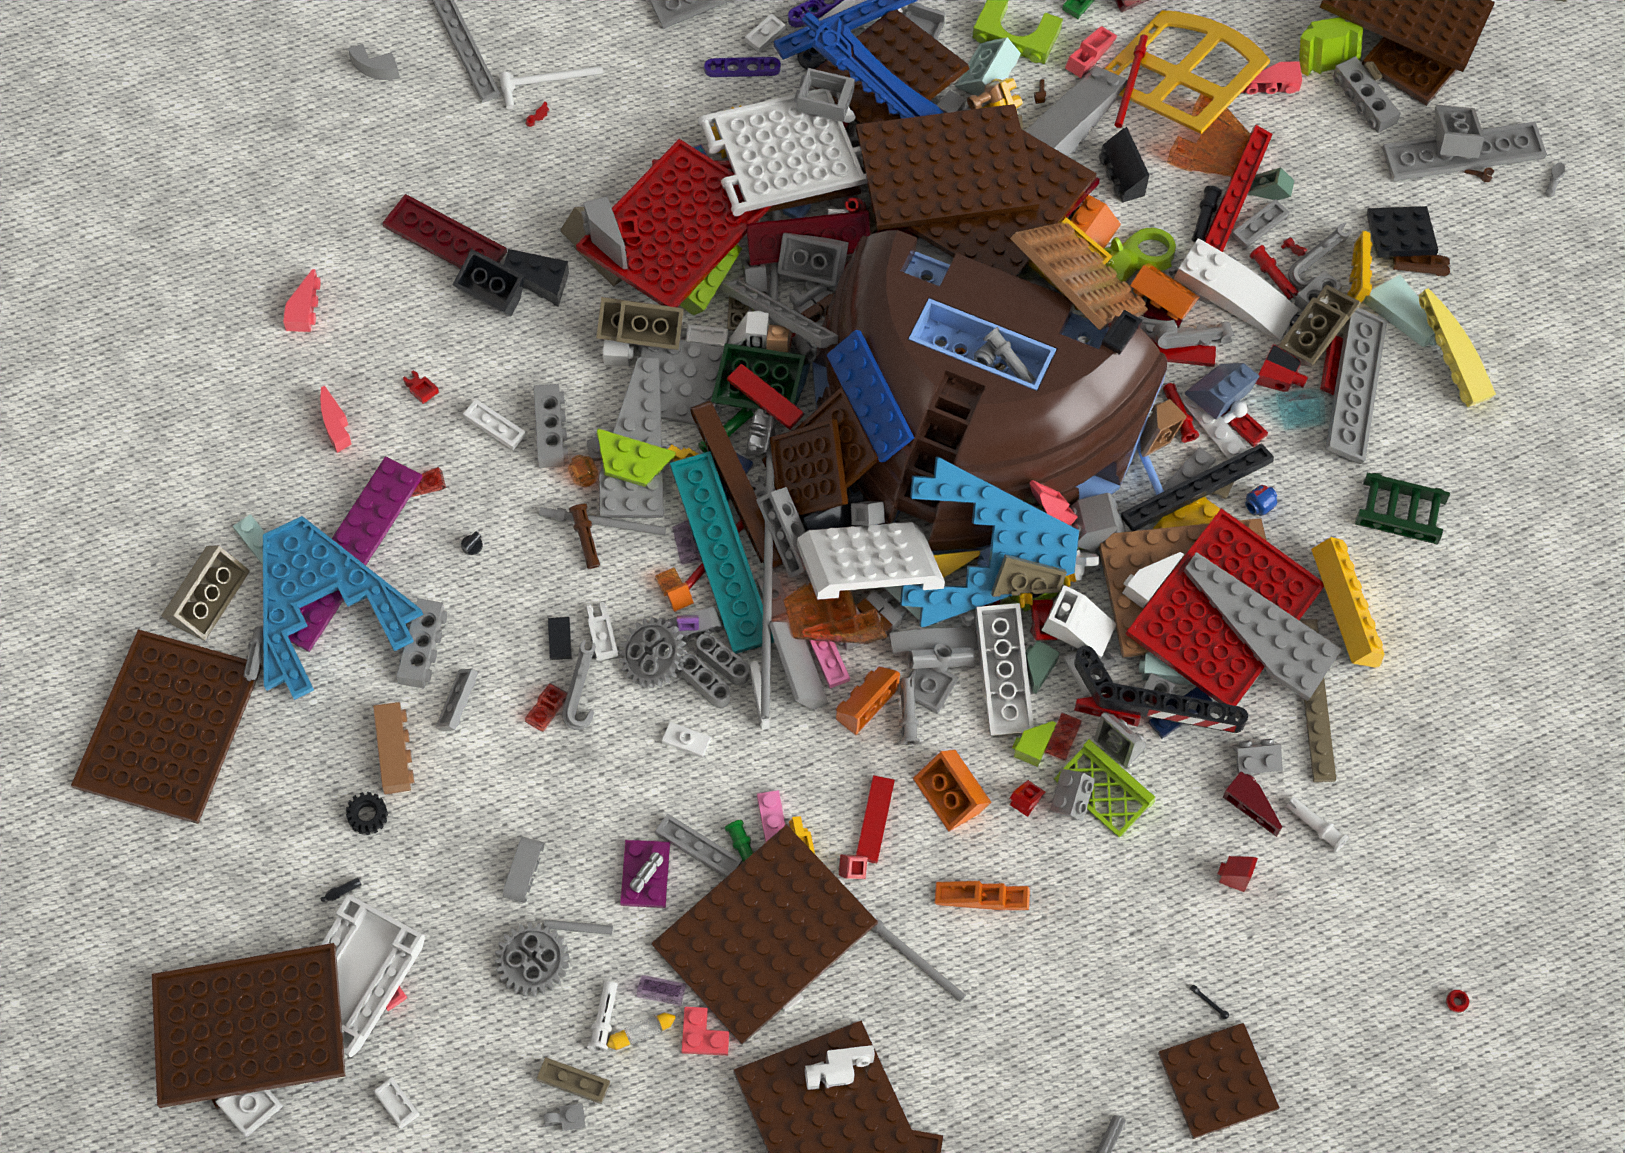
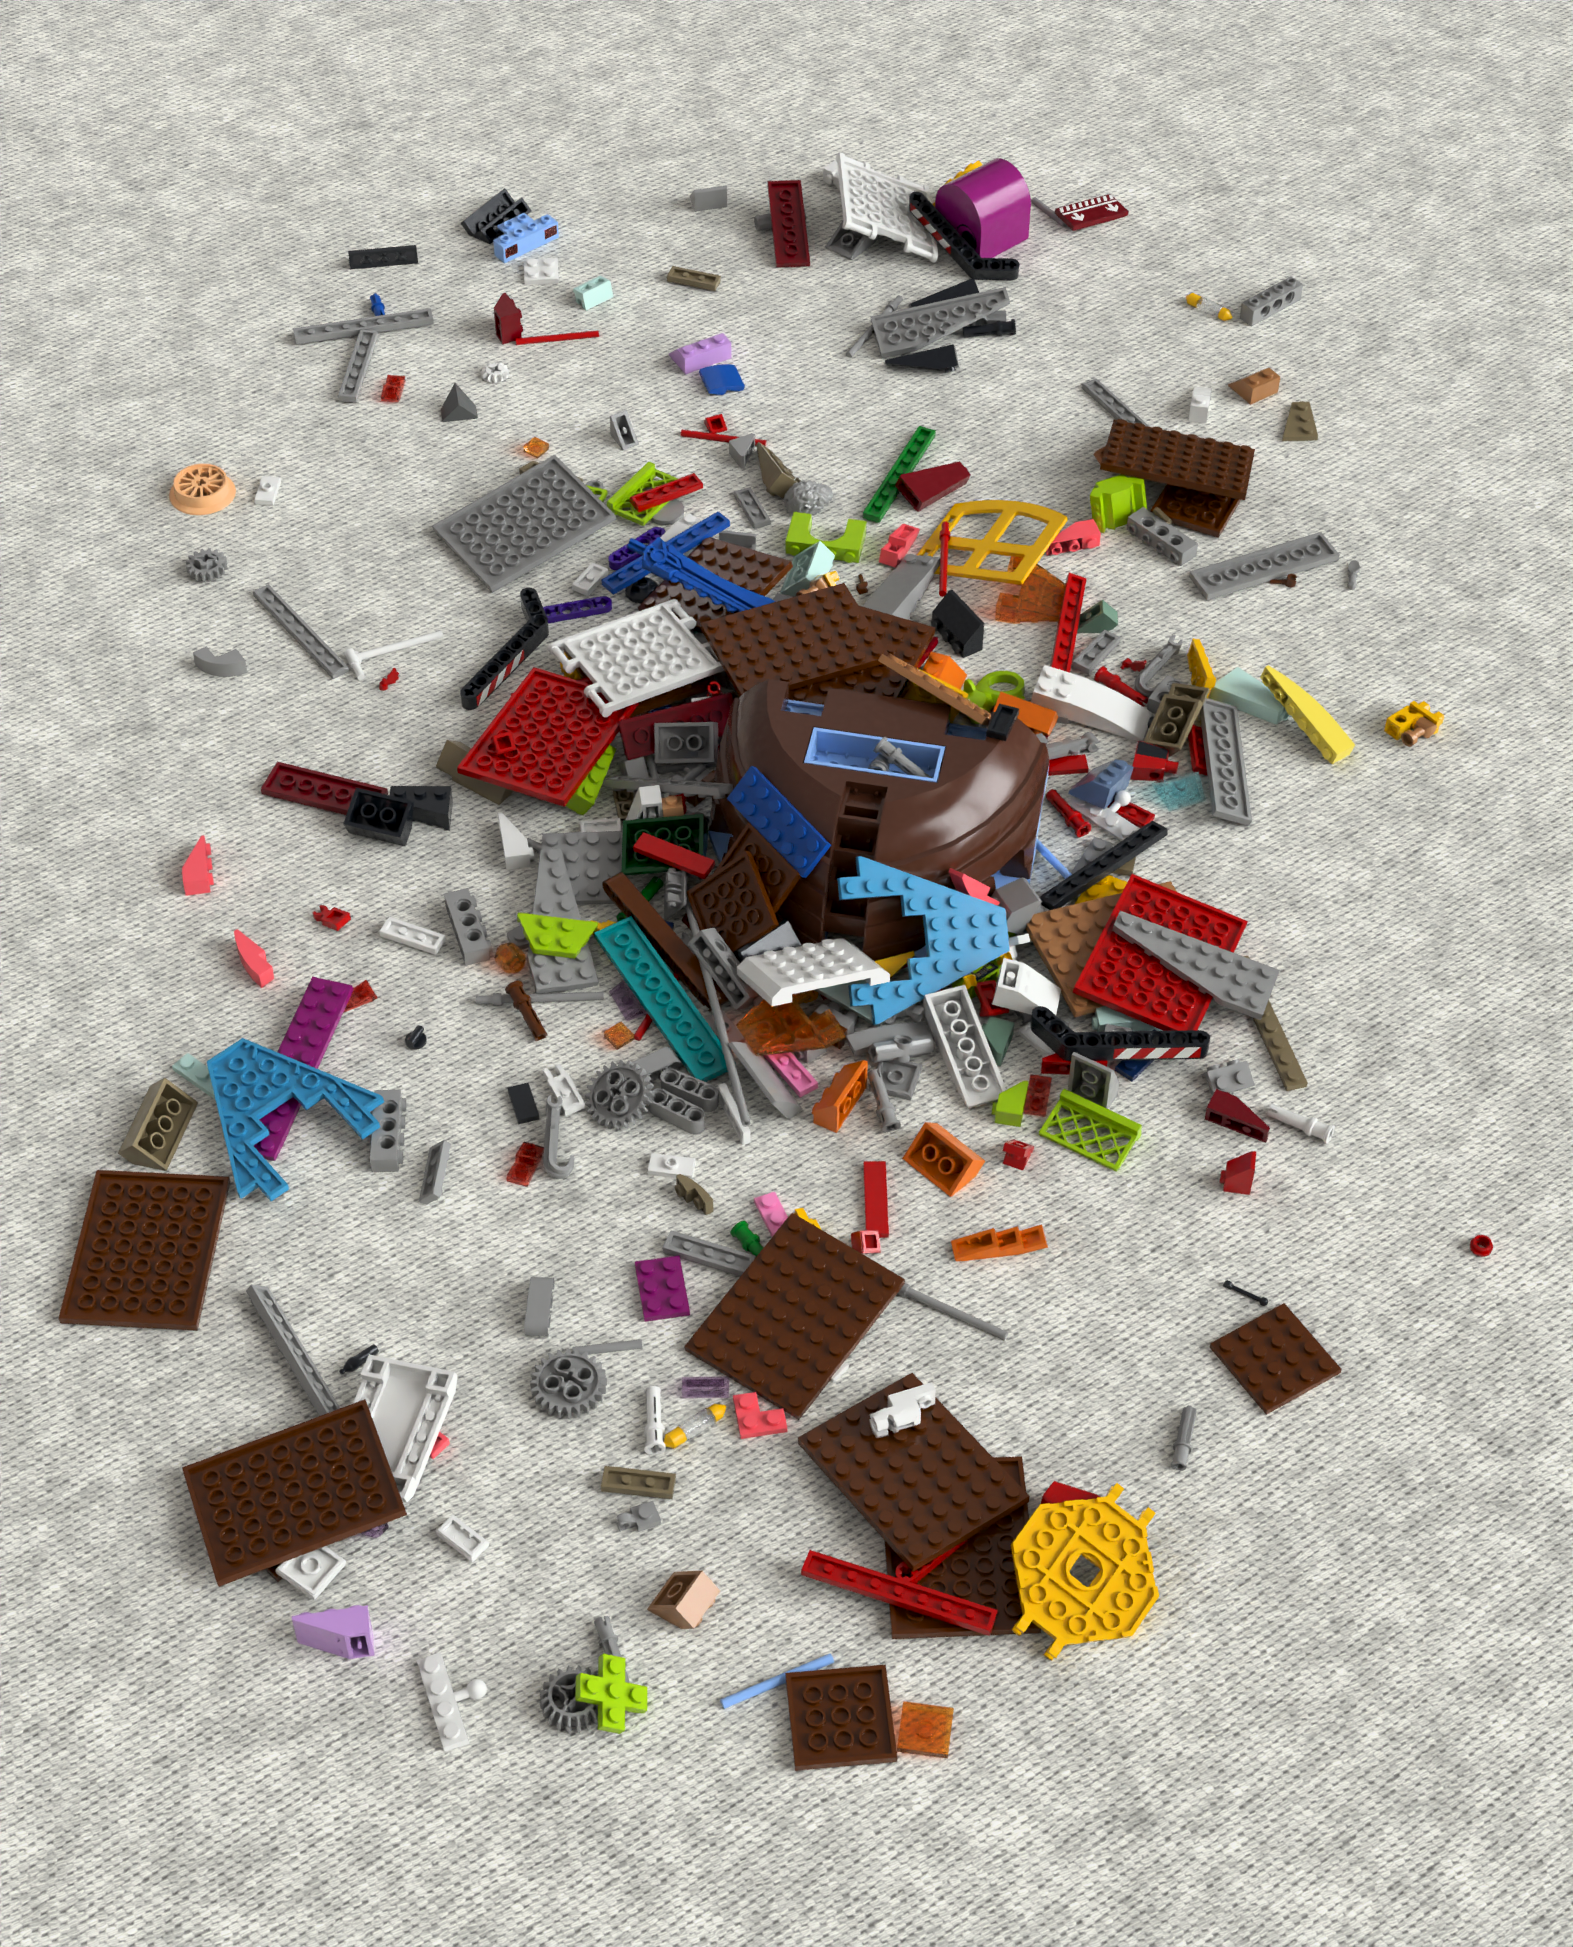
camera: 10 degrees left, 15 degrees down
(255, 654) = (221, 1163): light grey axle -> none
(282, 869) = (292, 1349): none -> light grey plate
(366, 801) = (368, 1276): black tyre -> none
(392, 748) = (380, 1225): medium nougat brick -> none
(603, 229) = (484, 745): light grey slope -> none
(616, 152) = (511, 654): none -> black beam
(640, 323) = (535, 820): dark tan slope -> none
(646, 872) = (664, 1282): light grey axle -> none
(679, 596) = (632, 1045): orange tile -> none
(688, 622) = (648, 1061): medium lavender slope -> none
(697, 773) = (693, 1192): none -> dark tan slope
(826, 81) = (663, 595): light grey window -> none
(867, 513) = (798, 934): light grey brick -> none
(1026, 576) = (964, 958): dark tan wing -> none
(1072, 794) = (1061, 1139): light grey bracket -> none
(1149, 579) = (1082, 941): white slope -> none
(1161, 427) = (1055, 822): medium nougat slope -> none
(1208, 207) = (1043, 647): black pin -> none
(1261, 500) = (1165, 868): blue head -> none
(1348, 603) = (1275, 931): yellow slope -> none
(1391, 524) = (1293, 866): dark green fence -> none
(1402, 231) = (1228, 635): black plate -> none
(1425, 264) = (1253, 657): reddish brown hinge -> none
(1458, 131) = (1255, 549): light grey slope -> none
(1571, 372) = (1416, 717): none -> yellow hips

